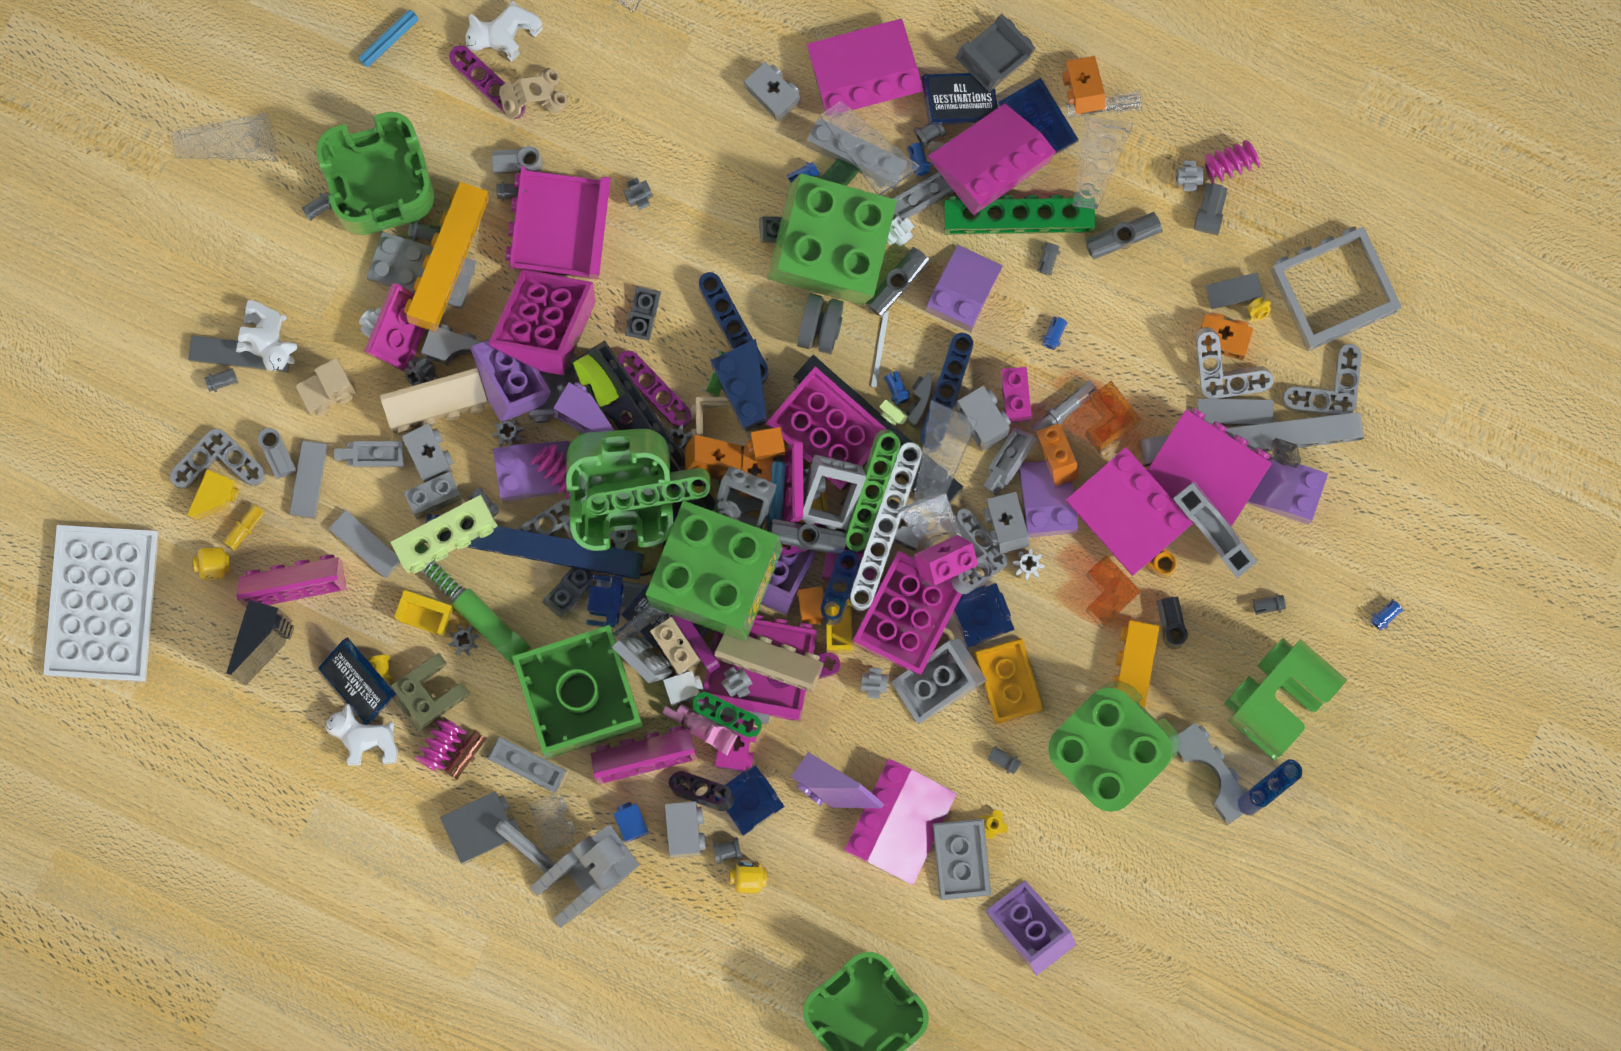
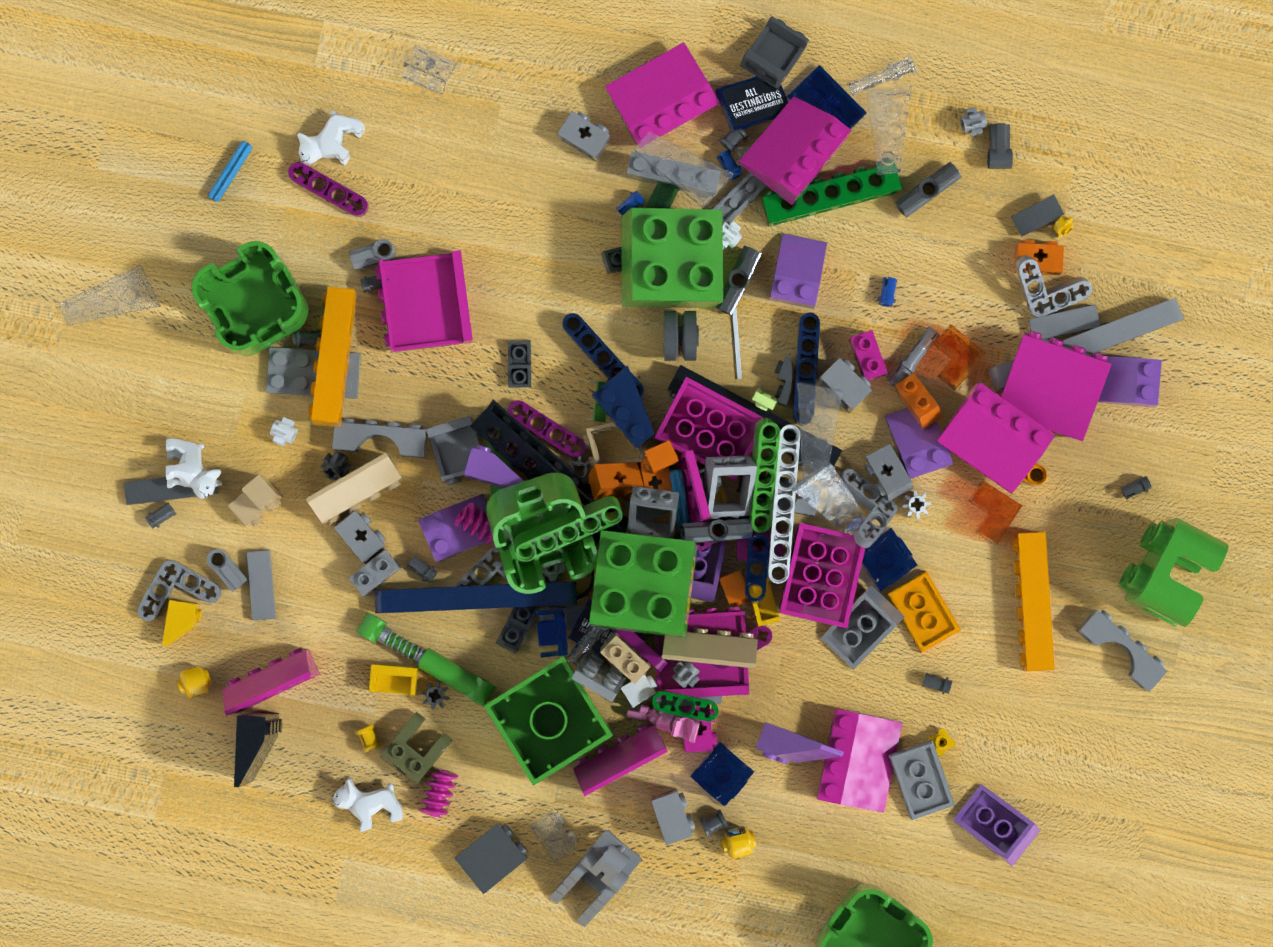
camera: 10 degrees left, 5 degrees up
(101, 603) = (106, 741): white plate -> none
(244, 527) = (215, 642): yellow axle -> none
(317, 206) = (205, 338): dark grey pin -> none
(357, 681) = (350, 755): tile -> none
(365, 544) = (326, 630): light grey tile -> none
(372, 454) = (312, 549): light grey hinge -> none
(392, 336) = (302, 440): dark pink tile -> none
(452, 521) = (364, 626): yellowish green brick -> none
(465, 754) = (462, 795): copper pin -> none
(509, 383) = (416, 451): medium lavender slope -> none
(514, 434) = (433, 502): light grey gear -> none
(518, 93) = (359, 195): tan piece -> none
(524, 845) = (536, 865): light grey axle -> none
(527, 764) = (518, 790): light grey tile -> none
(544, 320) = (434, 394): dark pink slope -> none
(592, 373) = (489, 433): lime slope -> none
(630, 822) = (623, 819): blue brick -> none
(638, 193) = (488, 257): dark grey gear -> none
(708, 799) = (672, 771): black beam -> none
(728, 509) = (641, 526): light grey plate -> none
(874, 682) = (806, 643): light grey gear -> none
(896, 387) = (761, 375): blue pin -> none
(946, 559) = (845, 522): dark pink brick -> none
(1009, 459) = (876, 415): light grey hinge -> none
(1048, 258) = (866, 226): dark grey pin -> none
(1084, 84) = (861, 62): orange brick -> none
(1112, 747) = (1033, 652): bright green piece -> none
(1172, 619) = (1053, 522): black piece -> none
(1216, 529) = (1076, 434): light grey arch -> none
(1231, 160) = (1006, 99): dark pink piece -> none
(1263, 794) = (1171, 658): clear blue beam -> none
(1285, 452) = (1120, 350): clear smoke plate -> none
(1313, 341) = (1091, 213): light grey window -> none
(1340, 392) = (1151, 281): light grey beam -> none
(1386, 615) = (1240, 472): blue pin -> none

